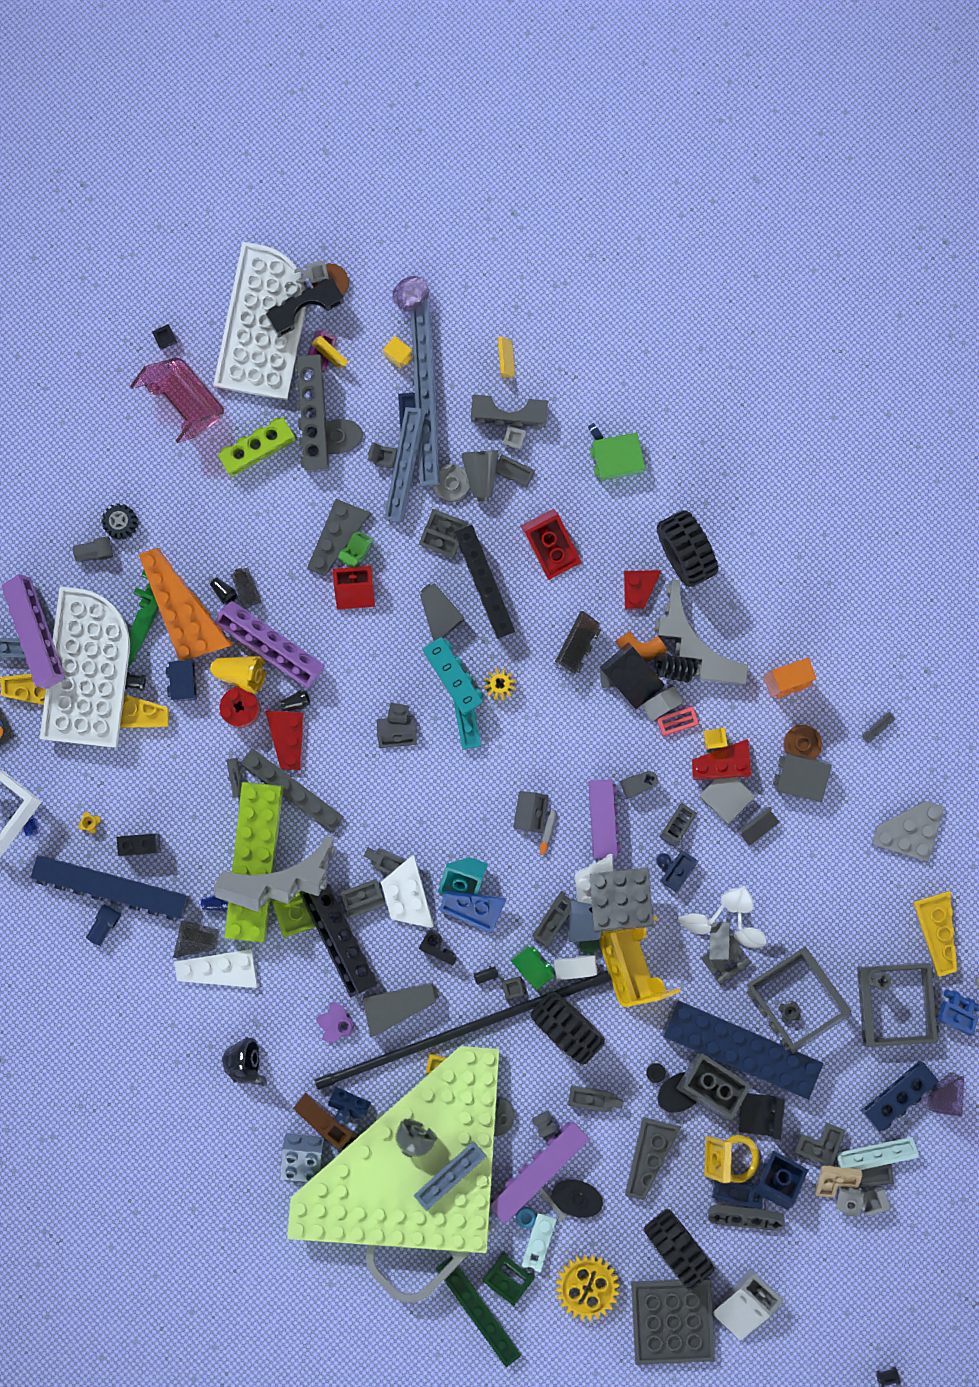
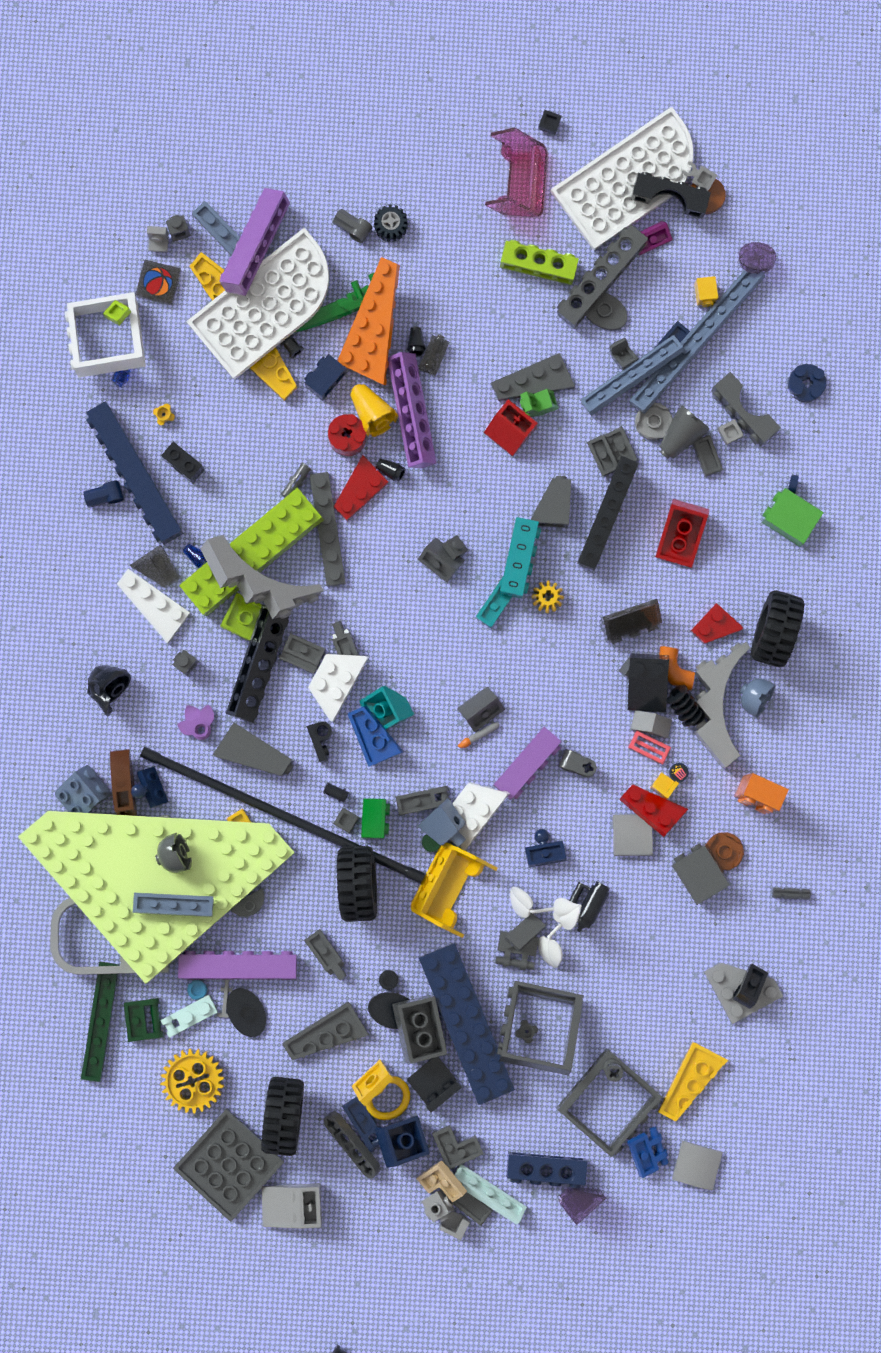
camera: 40 degrees right, 0 degrees up
(283, 989) = (185, 662): none -> dark grey brick
(329, 352) = (656, 239): yellow tile -> none
(506, 357) = (781, 369): yellow slope -> none
(533, 360) = (798, 389): none -> dark blue plate
(544, 1124) = (274, 937): dark grey wheel -> none
(575, 967) = (404, 849): white slope -> none
(621, 900) = (484, 831): dark grey plate -> none
(668, 837) = (560, 820): dark grey slope -> none
(715, 719) = (678, 772): none -> tile
(717, 610) = (756, 696): none -> sand blue cylinder
(747, 875) = (592, 903): none -> black piece
(758, 826) = (634, 878): dark grey panel -> none
(917, 824) = (751, 986): none -> black plate

